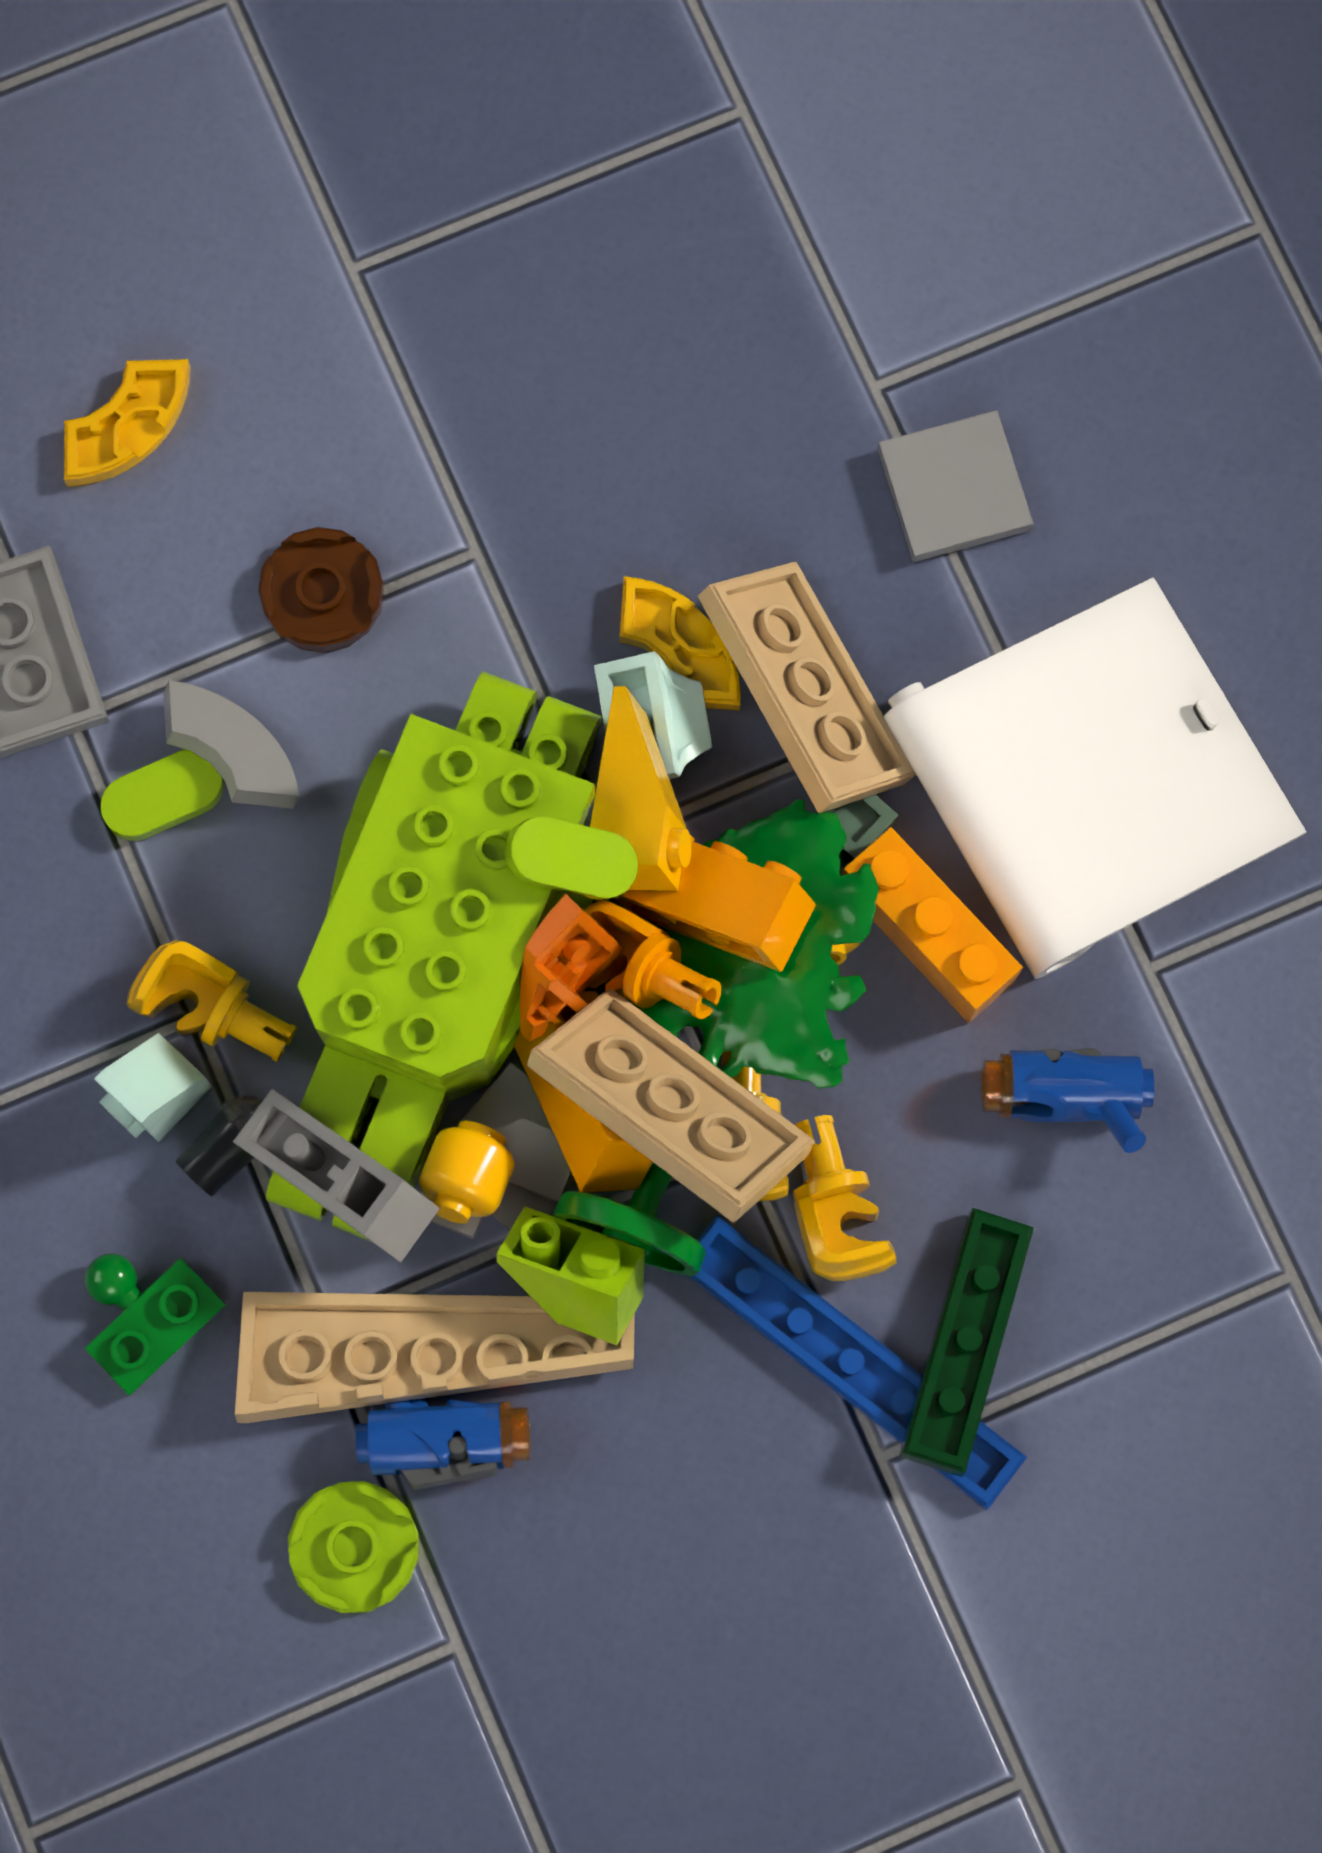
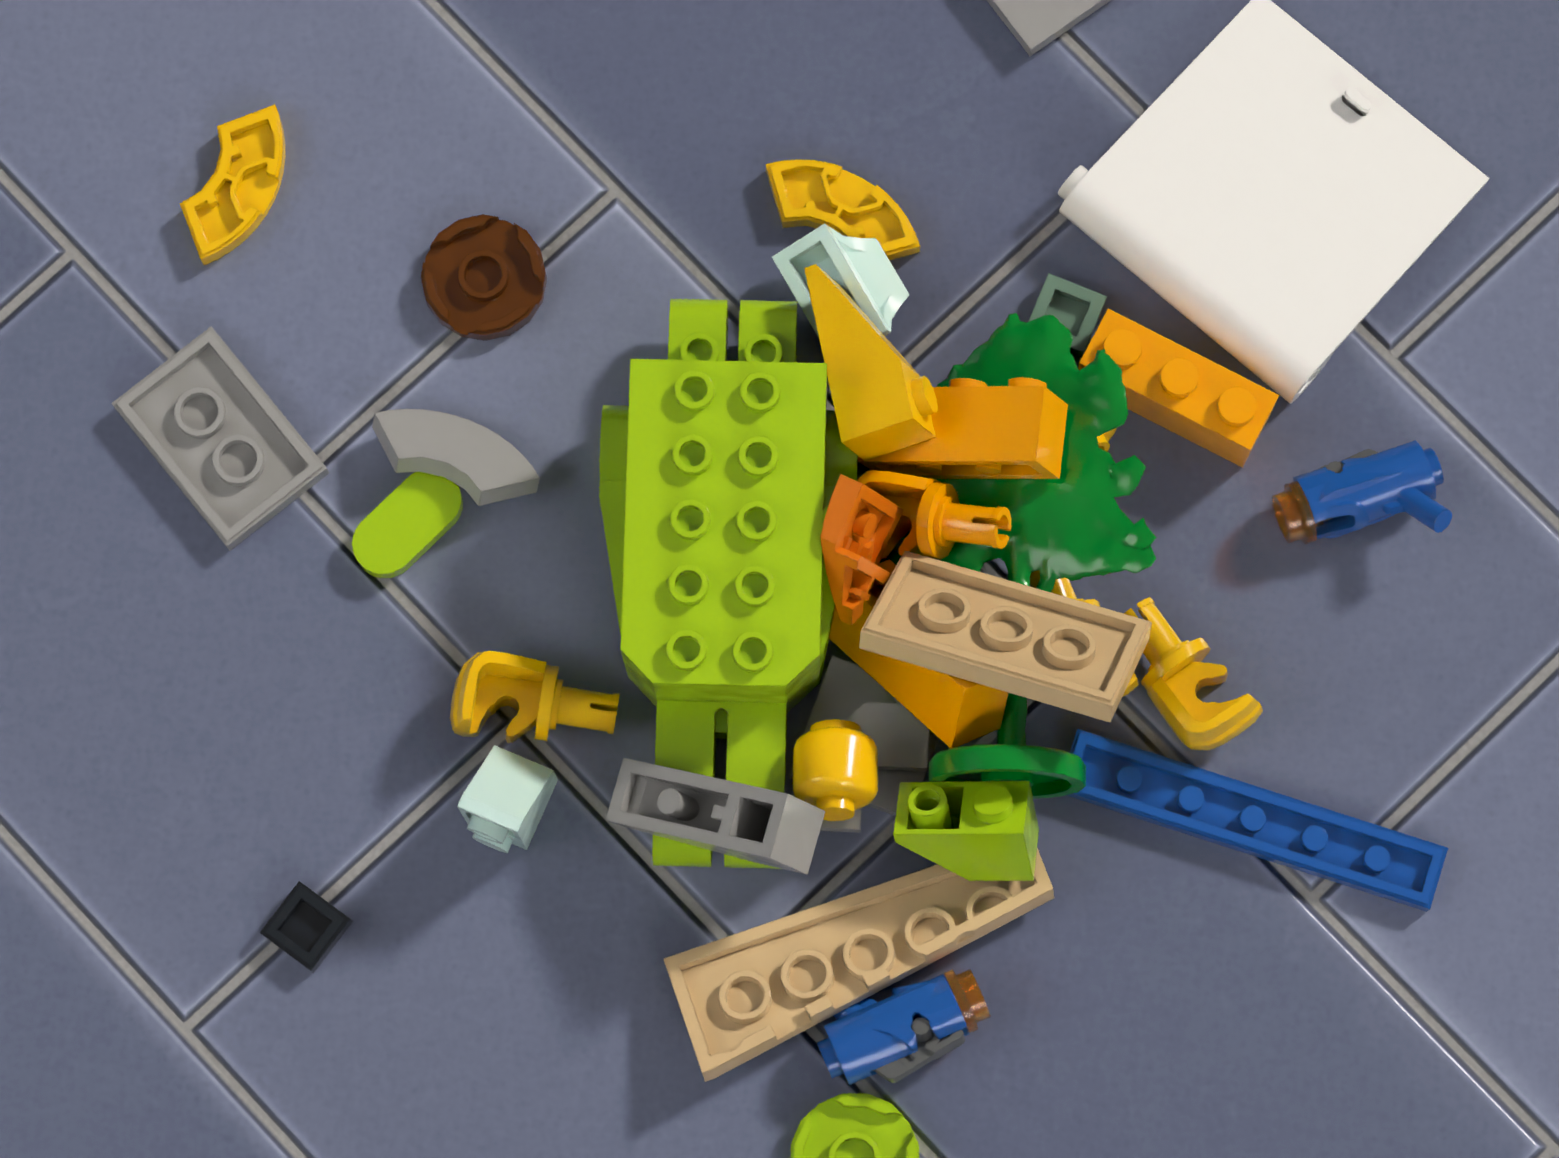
camera: 15 degrees left, 0 degrees up
(151, 1323) = (586, 1019): green plate -> none
(213, 1154) = (588, 836): black piece -> none
(571, 857) = (832, 439): lime tile -> none
(806, 686) = (977, 205): tan tile -> none
(966, 1342) = (1353, 762): dark green tile -> none

